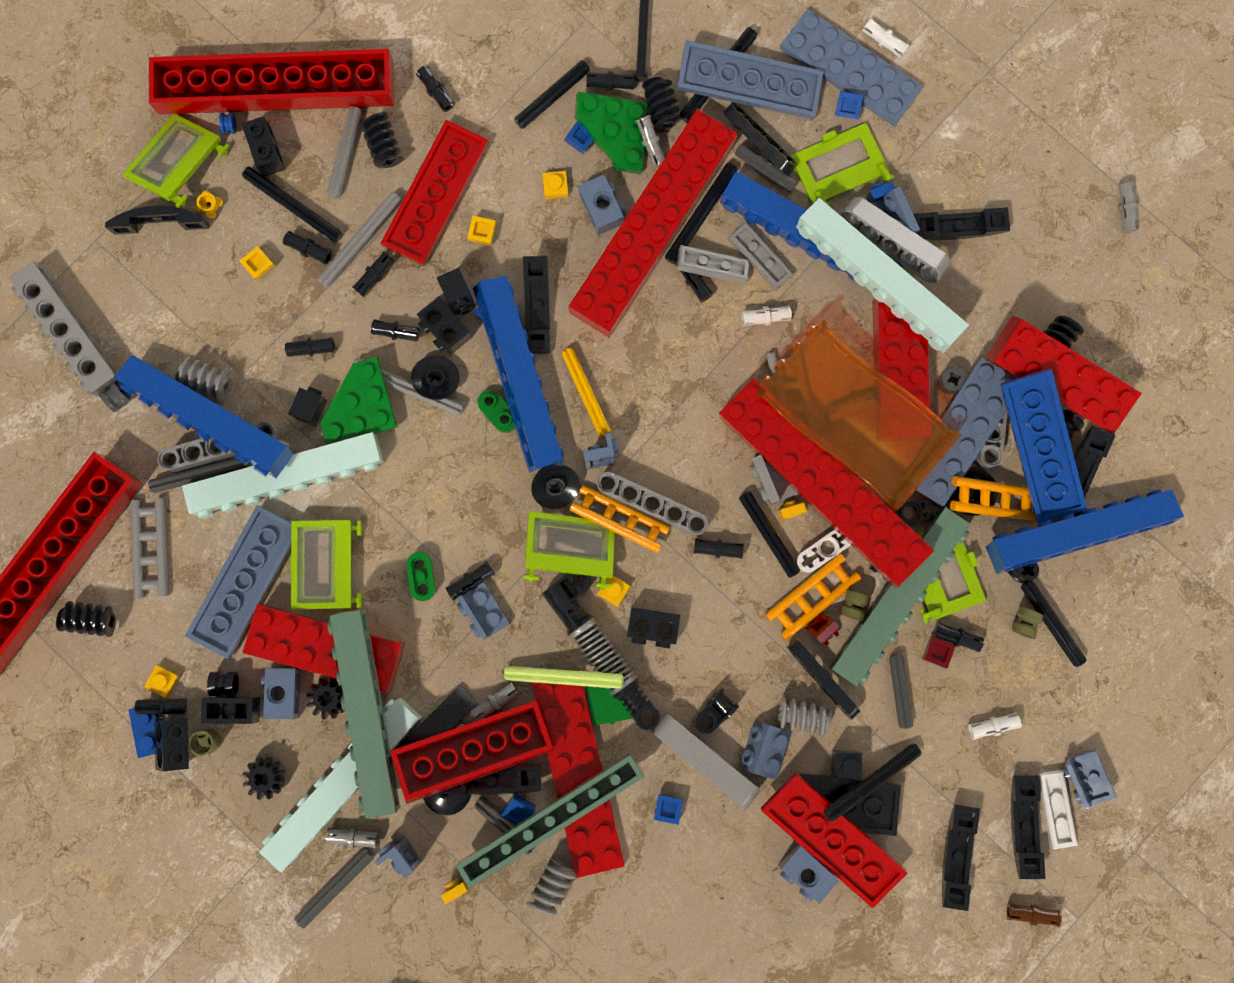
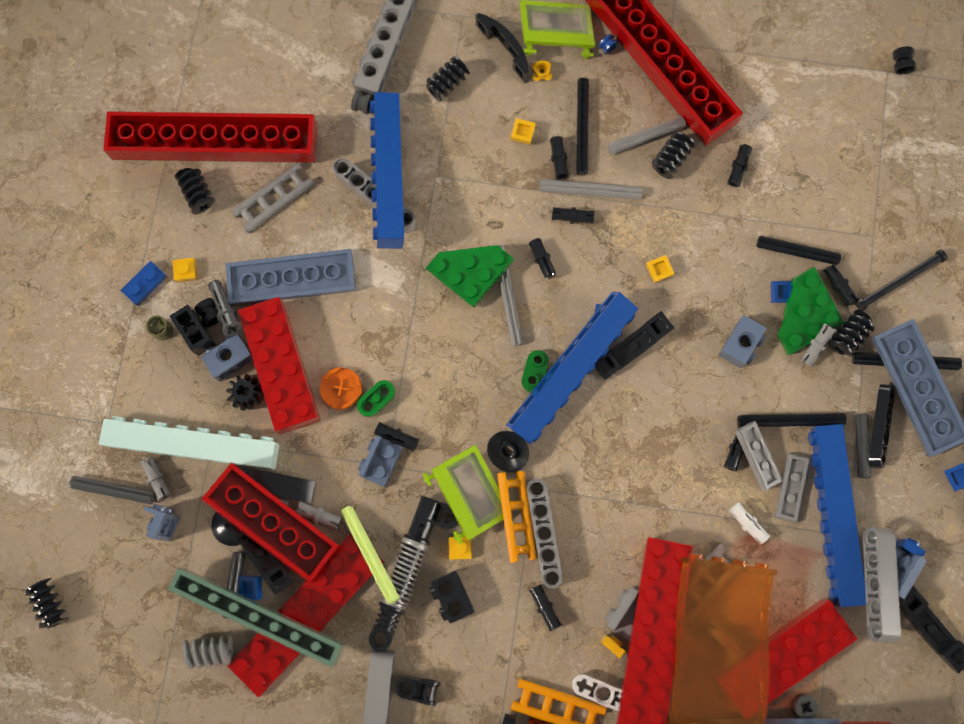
camera: 65 degrees right, 5 degrees down
(148, 298) = (446, 77): none -> black piece
(161, 707) = (166, 281): black axle -> none
(171, 744) = (143, 306): black brick -> none
(194, 475) = (344, 193): dark grey axle -> none
(203, 380) = (415, 153): light grey piece -> none
(237, 667) = (226, 314): none -> dark grey pin
(263, 146) = (609, 78): black brick -> none
(274, 780) = (156, 379): black gear -> none
(303, 469) = (396, 262): light aqua brick -> none
(308, 406) = (445, 235): black brick -> none
(310, 347) = (488, 208): black axle -> none
(322, 564) = (338, 323): piece -> none
(364, 713) = (248, 425): sand green brick -> none
(388, 604) = (341, 388): none -> orange tile
(434, 192) = (663, 217): red plate -> none
(435, 368) = (533, 303): black dish -> none
(447, 323) = (574, 291): black brick -> none
(454, 890) = (161, 578): yellow plate -> none
(456, 292) = (600, 281): black brick -> none
(555, 184) = (732, 298): yellow plate -> none
(585, 392) = (594, 426): yellow axle -> none
(599, 456) = (551, 468): sand blue bracket -> none
(604, 707) = (367, 601): green piece -> none
(652, 223) = (758, 389): red brick -> none
(668, 809) = (322, 702): blue plate -> none
(769, 534) = (583, 640): black axle -> none
(840, 164) = (908, 501): lime piece -> none
(881, 276) = (844, 594): light aqua brick -> none

